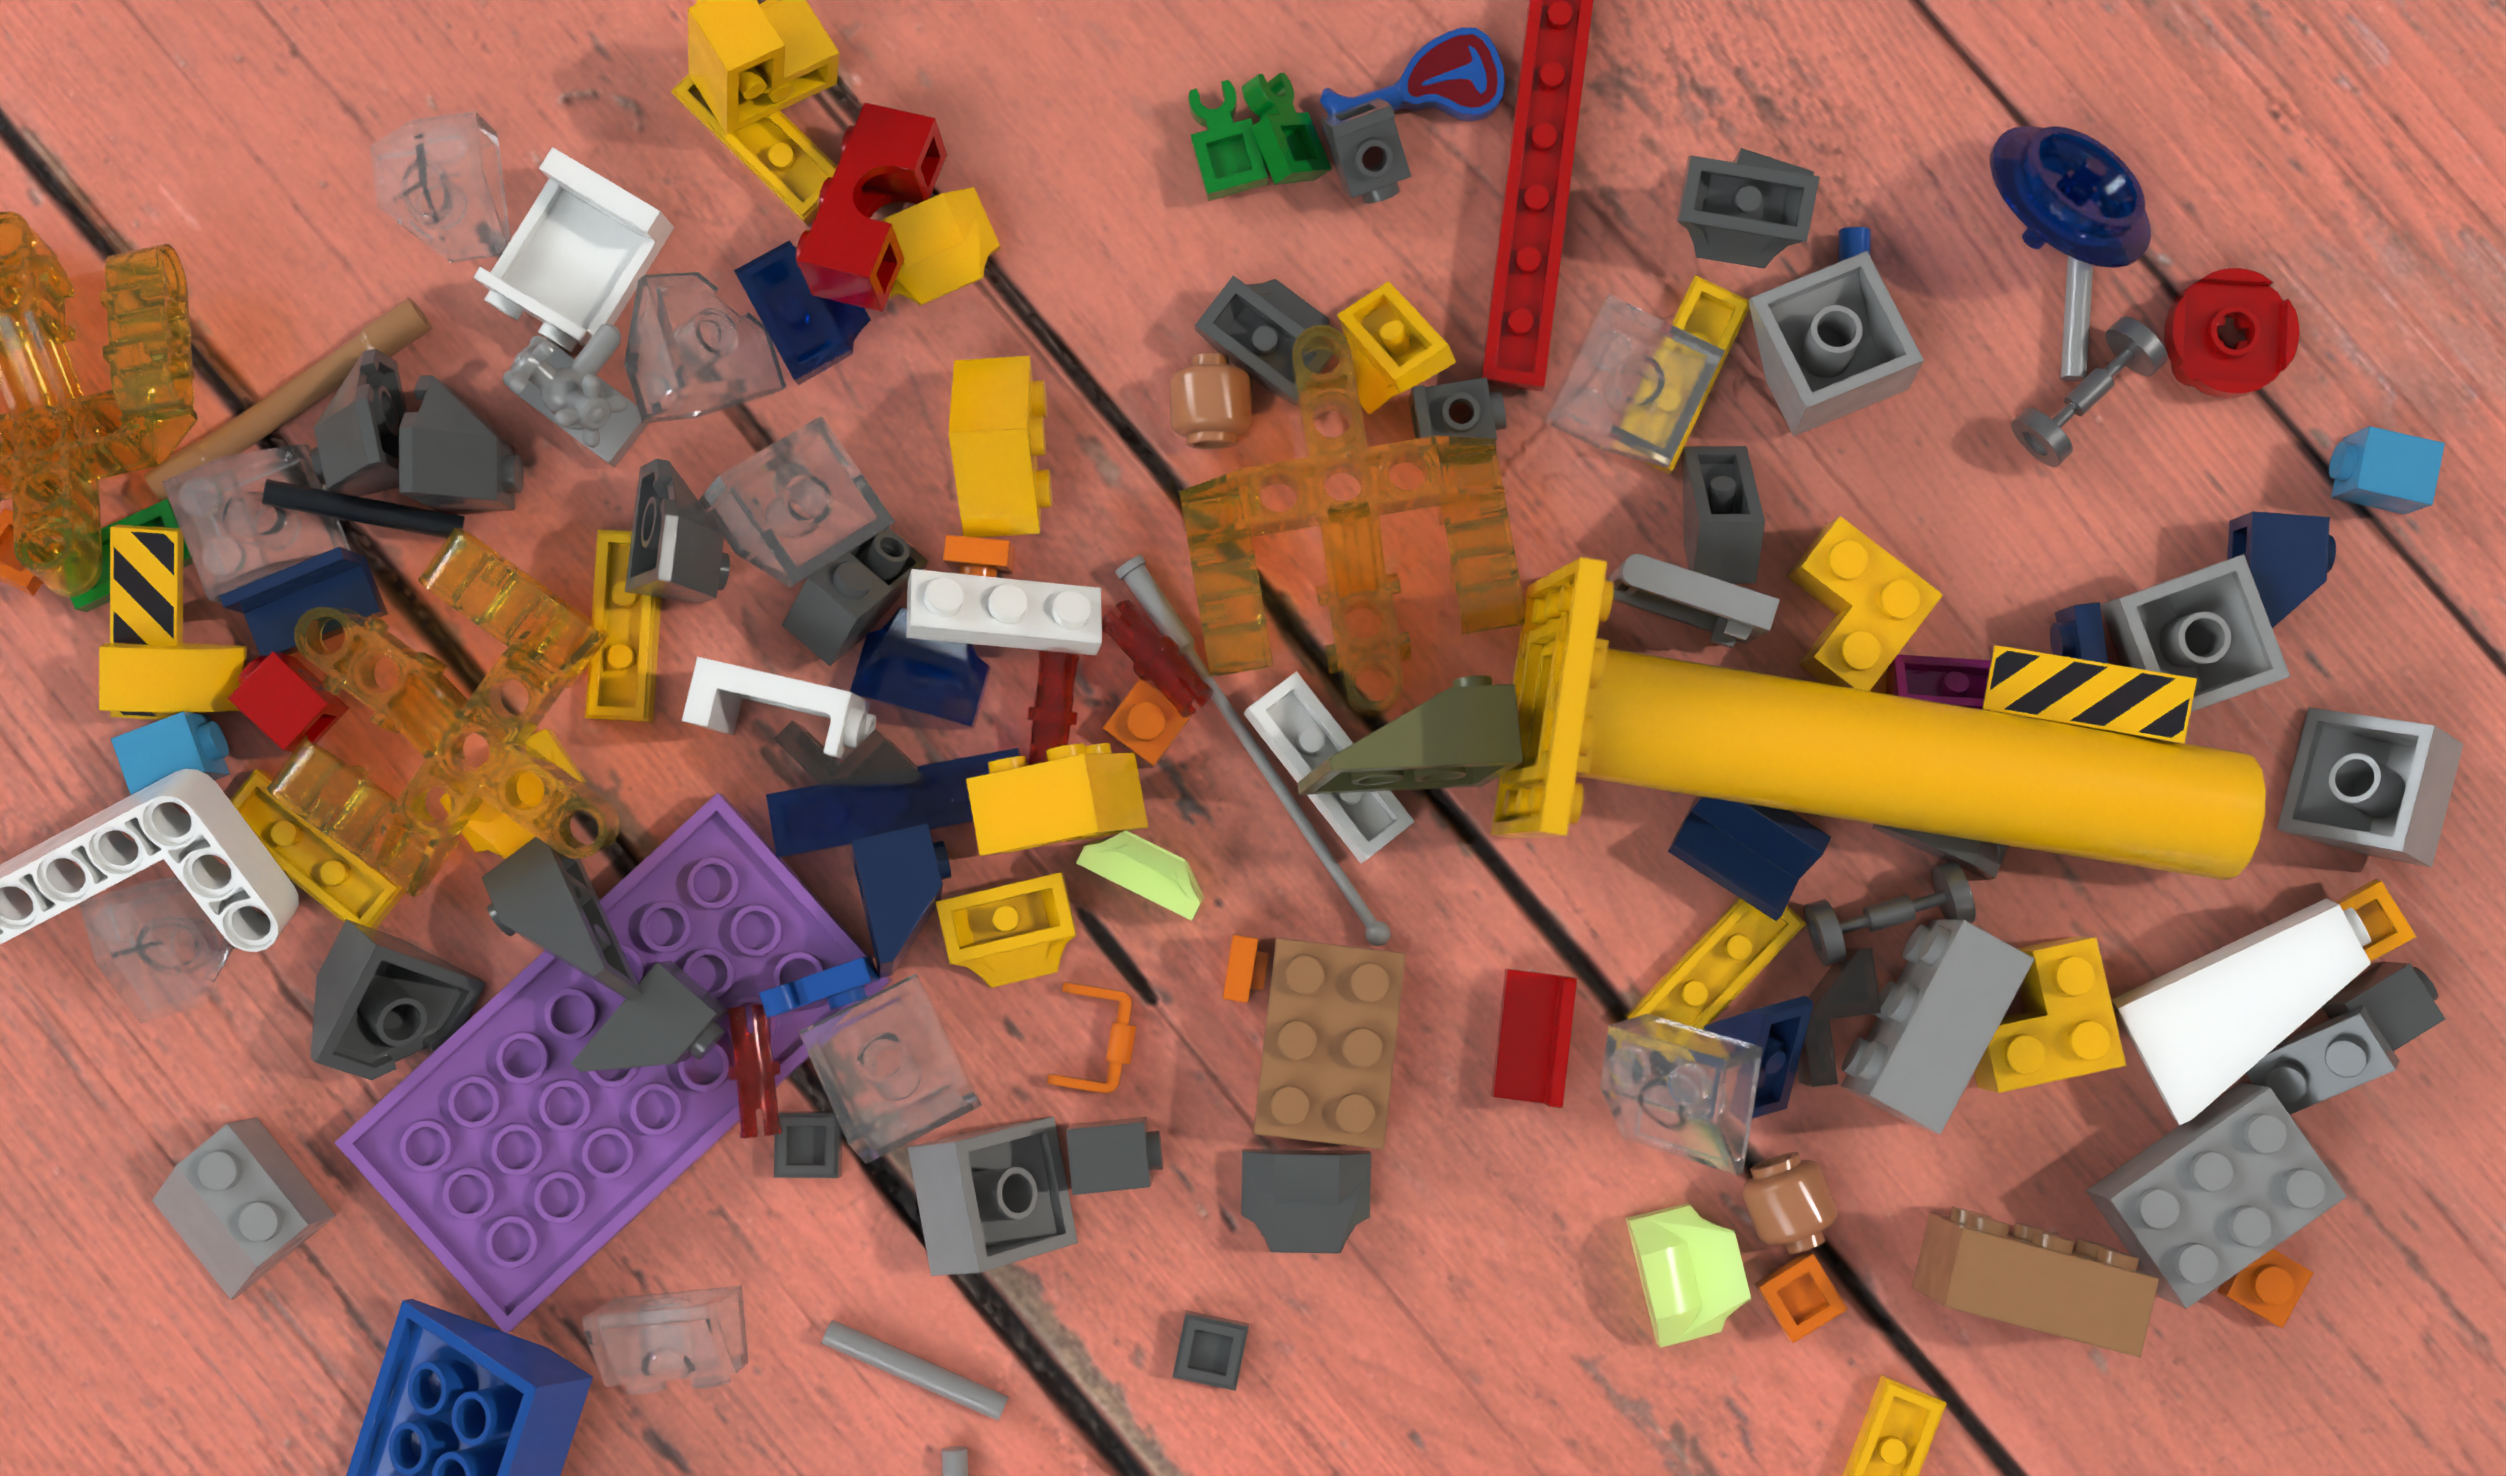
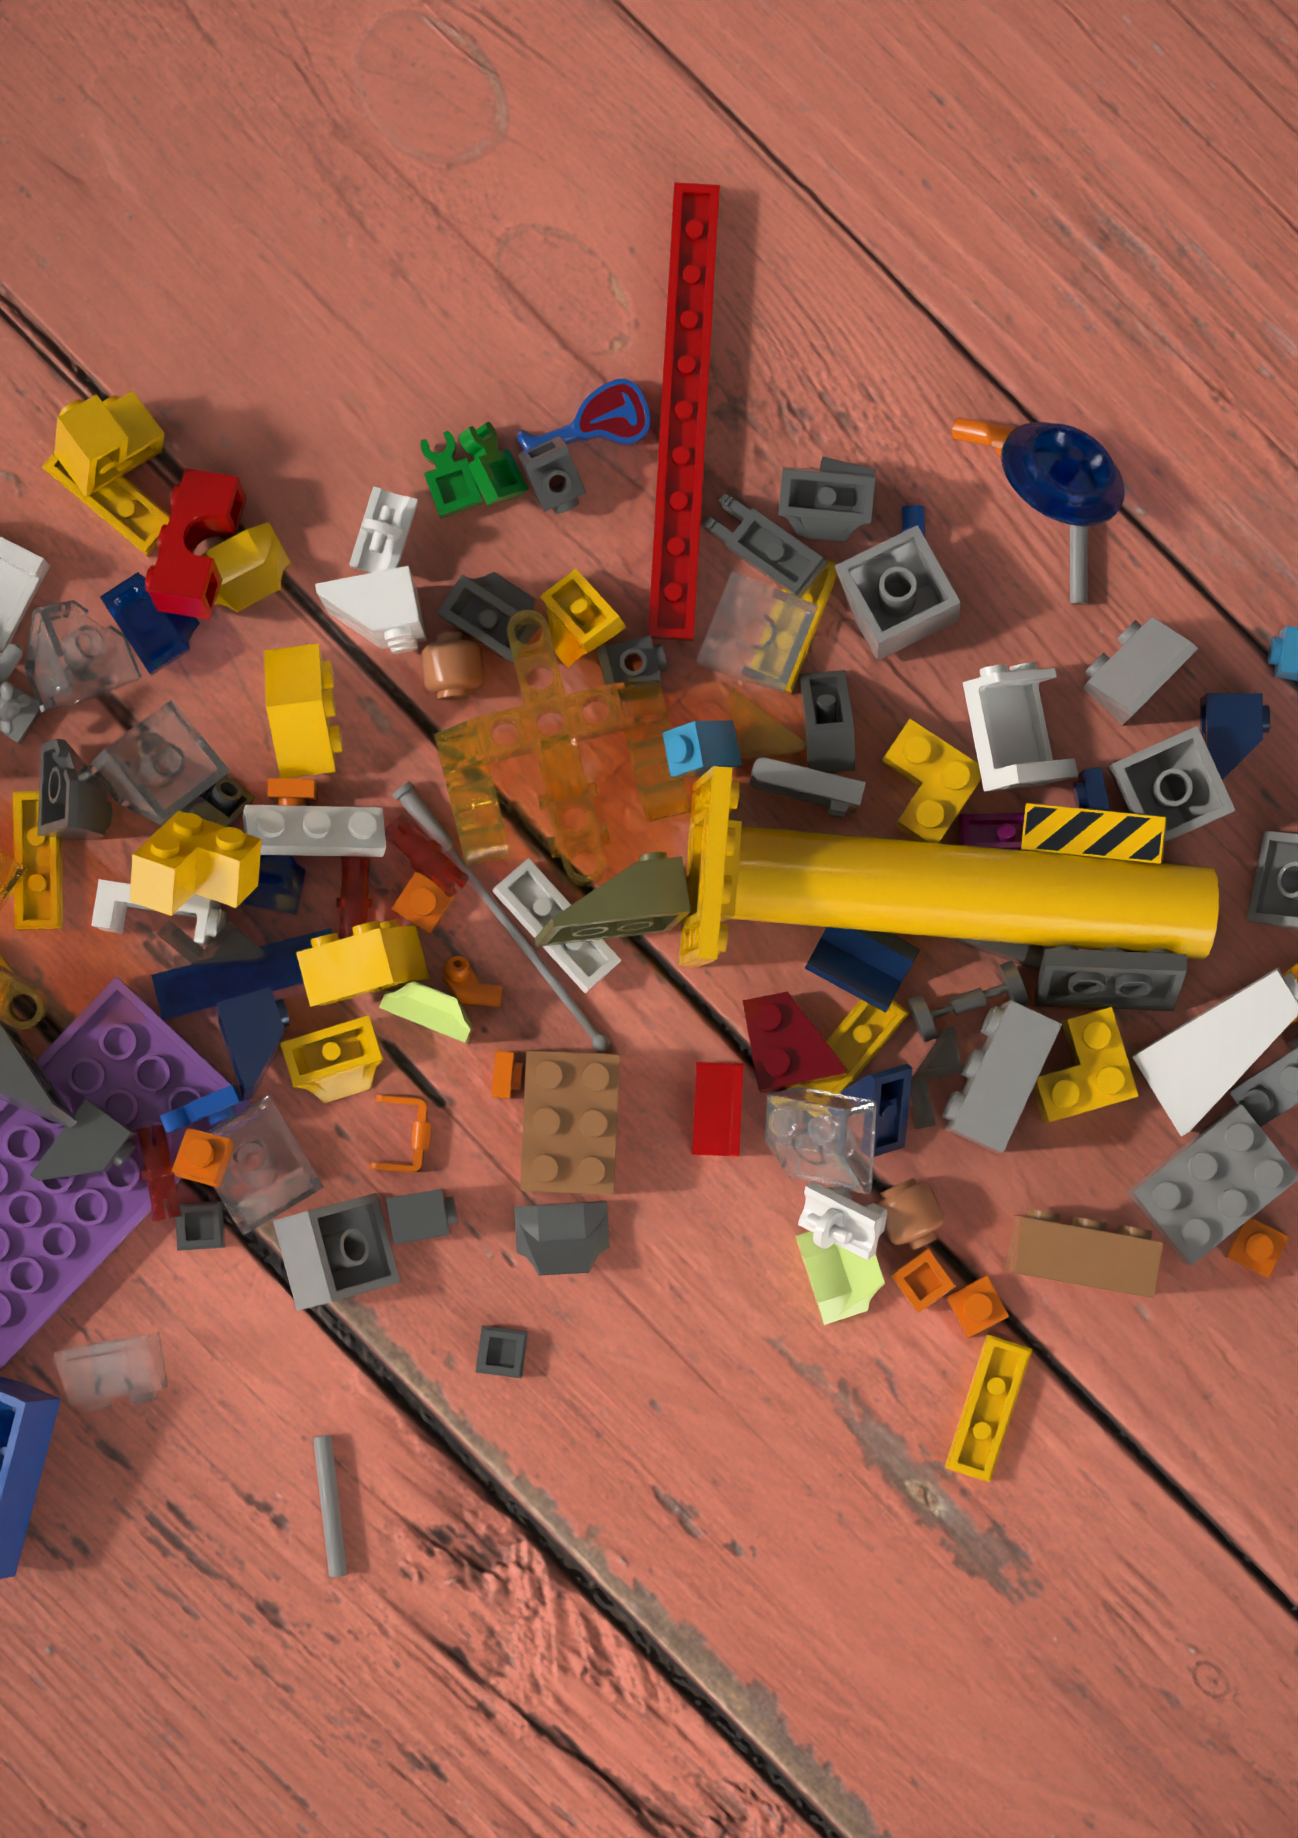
camera: 10 degrees left, 0 degrees up
(815, 1055) = (203, 1157): none -> orange plate
(834, 638) = (194, 858): none -> yellow brick
(915, 1370) = (289, 1381): light grey bar -> none
(1112, 307) = (378, 607): none -> white slope
(1129, 212) = (383, 531): none -> white hips
(1198, 842) = (466, 986): none -> orange arm
(1546, 535) = (700, 746): none -> dark azure brick
(1623, 521) = (759, 733): none -> clear yellow slope
(1636, 955) = (787, 1045): none -> dark red wing
(1653, 268) = (767, 547): none -> dark grey hinge
(1697, 1207) = (842, 1221): none -> white hips
(1872, 1336) = (977, 1306): none -> orange plate
(1959, 136) = (981, 432): none -> orange arm
(1977, 540) = (1012, 728): none -> white panel
(2095, 897) = (1110, 979): none -> dark grey plate
(2134, 347) = (1119, 579): flat silver wheel -> none
(2158, 471) = (1138, 668): none -> light grey slope
(2258, 309) = (1208, 544): red plate -> none

